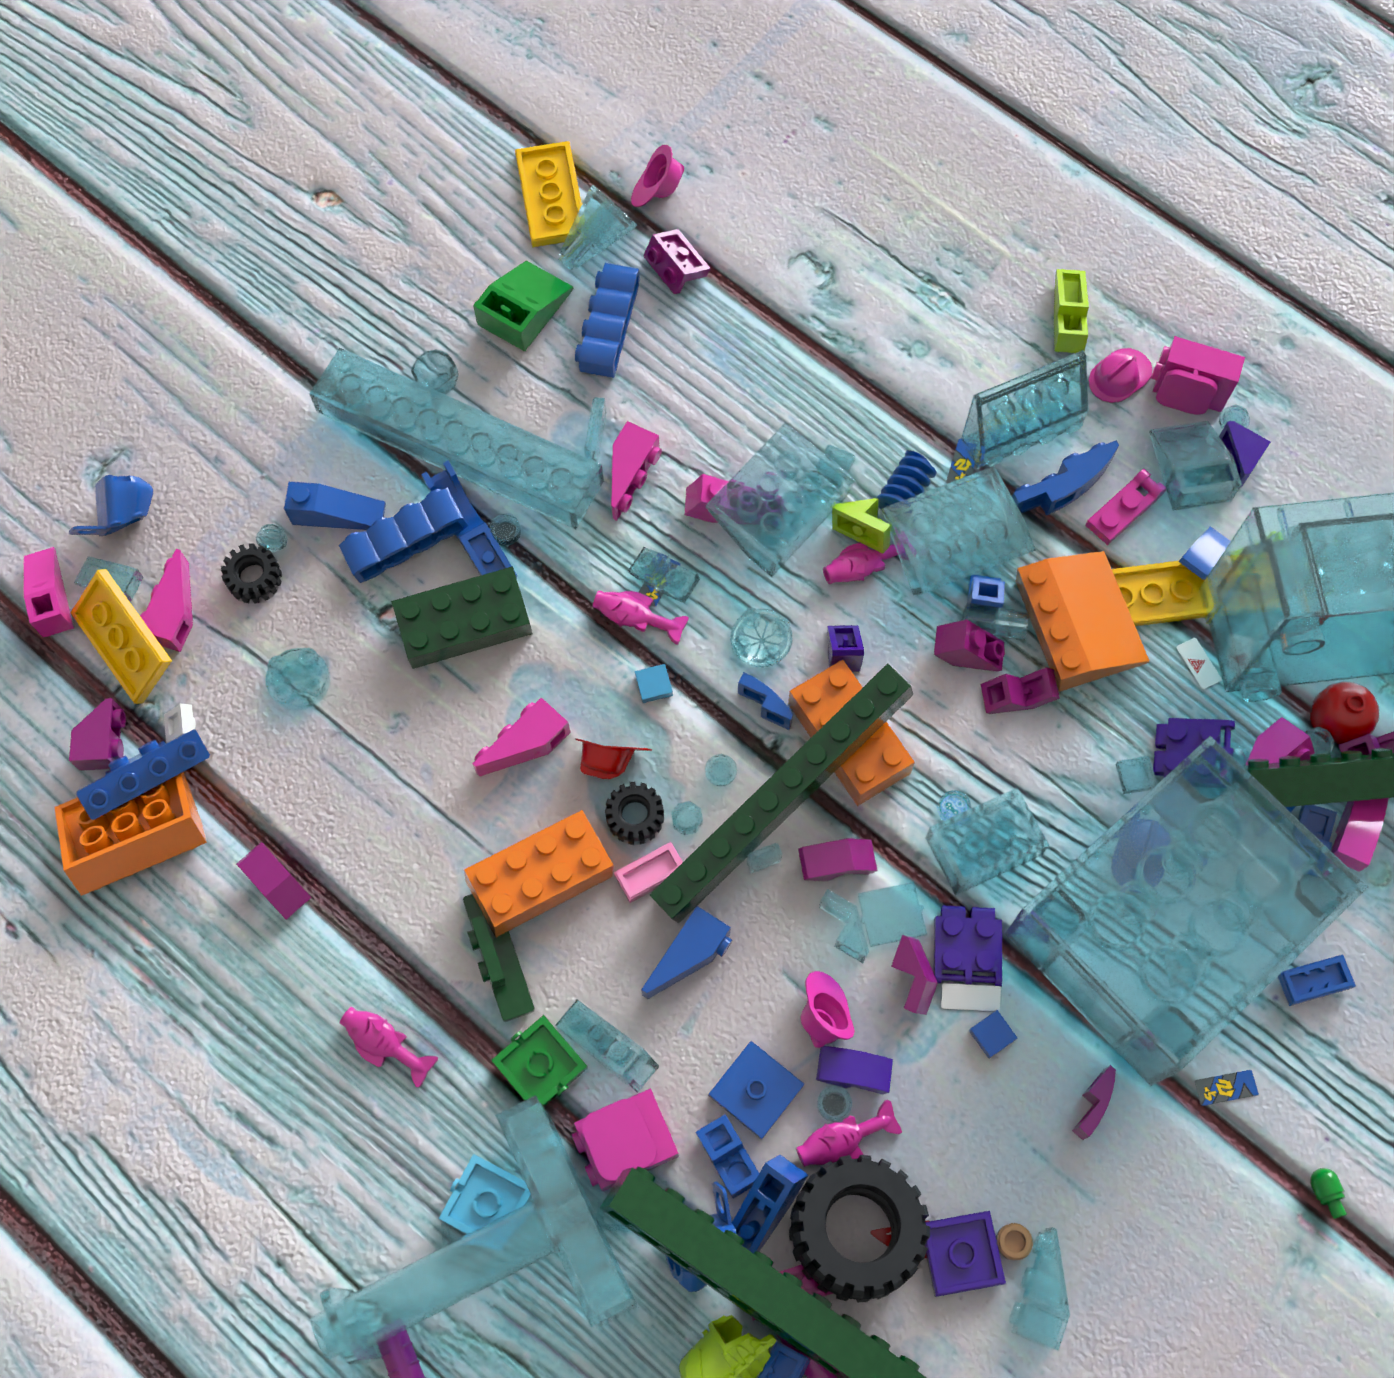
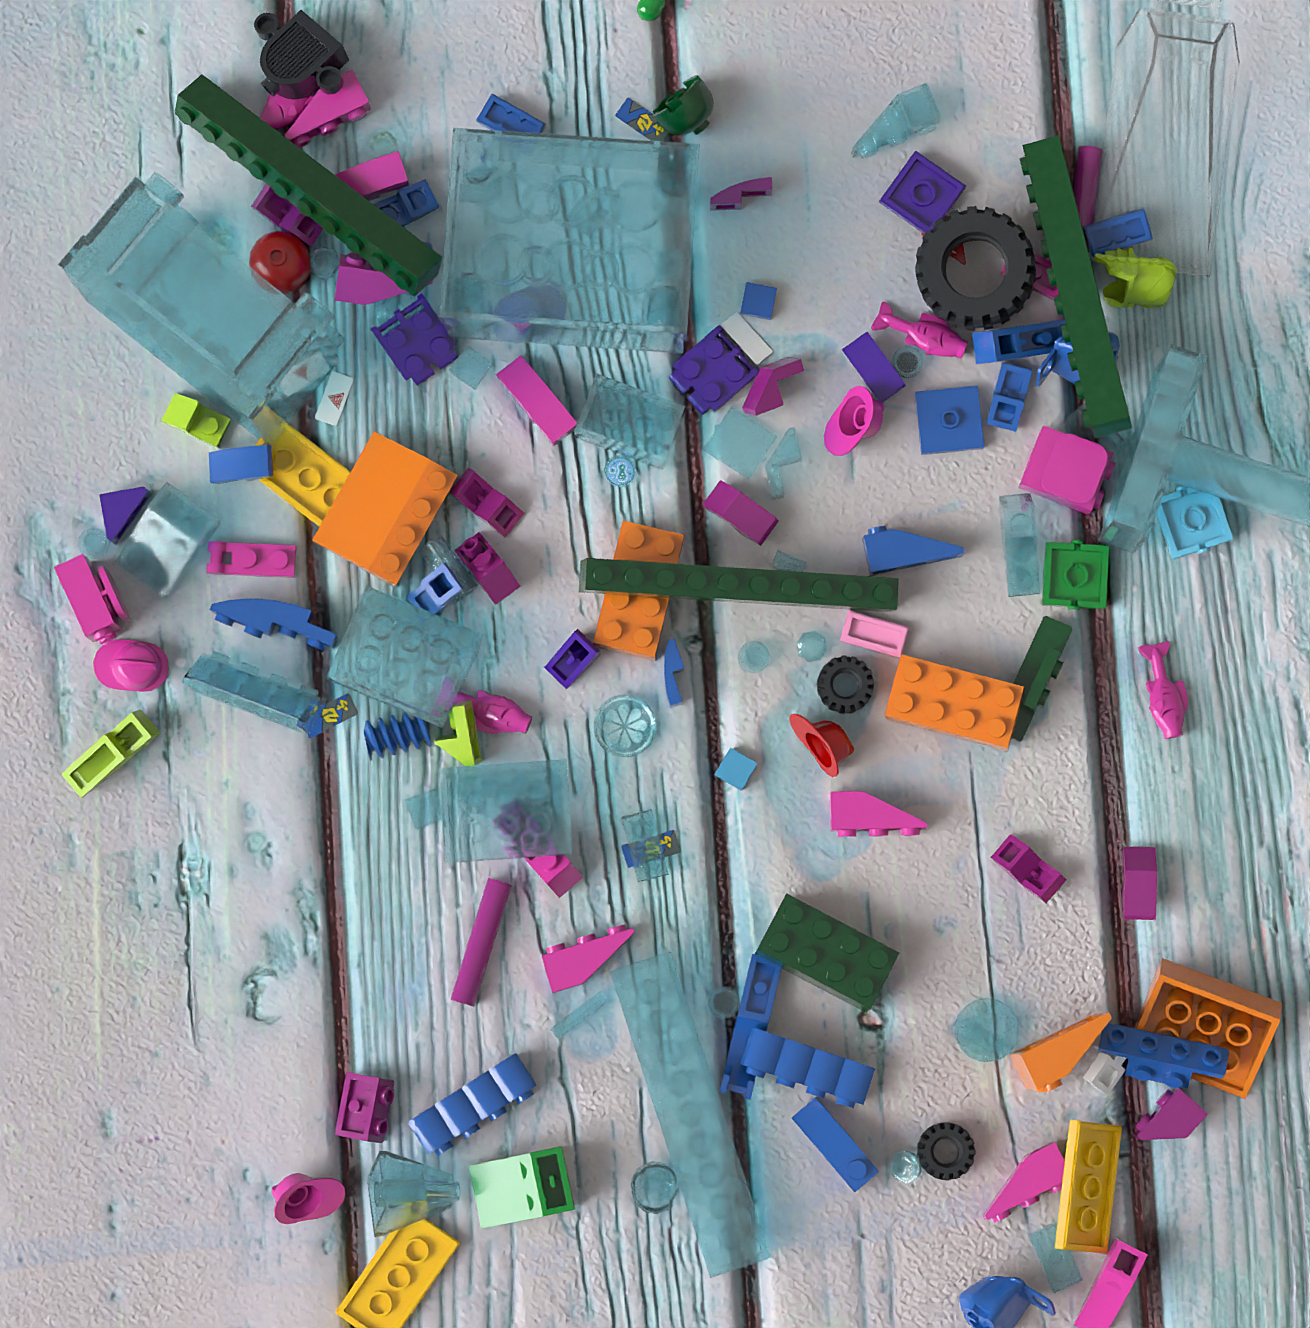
camera: 135 degrees left, 15 degrees up
(218, 687) = (1054, 1057): none -> orange slope
(373, 814) = (1028, 868): none -> magenta slope
(633, 610) = (696, 840): dark pink animal -> none
(709, 417) = (481, 942): none -> magenta piece
(1014, 1241) = (881, 169): medium nougat tile -> none
(1066, 794) = (537, 400): none -> dark pink slope
(1209, 1125) = (685, 109): none -> dark green cylinder

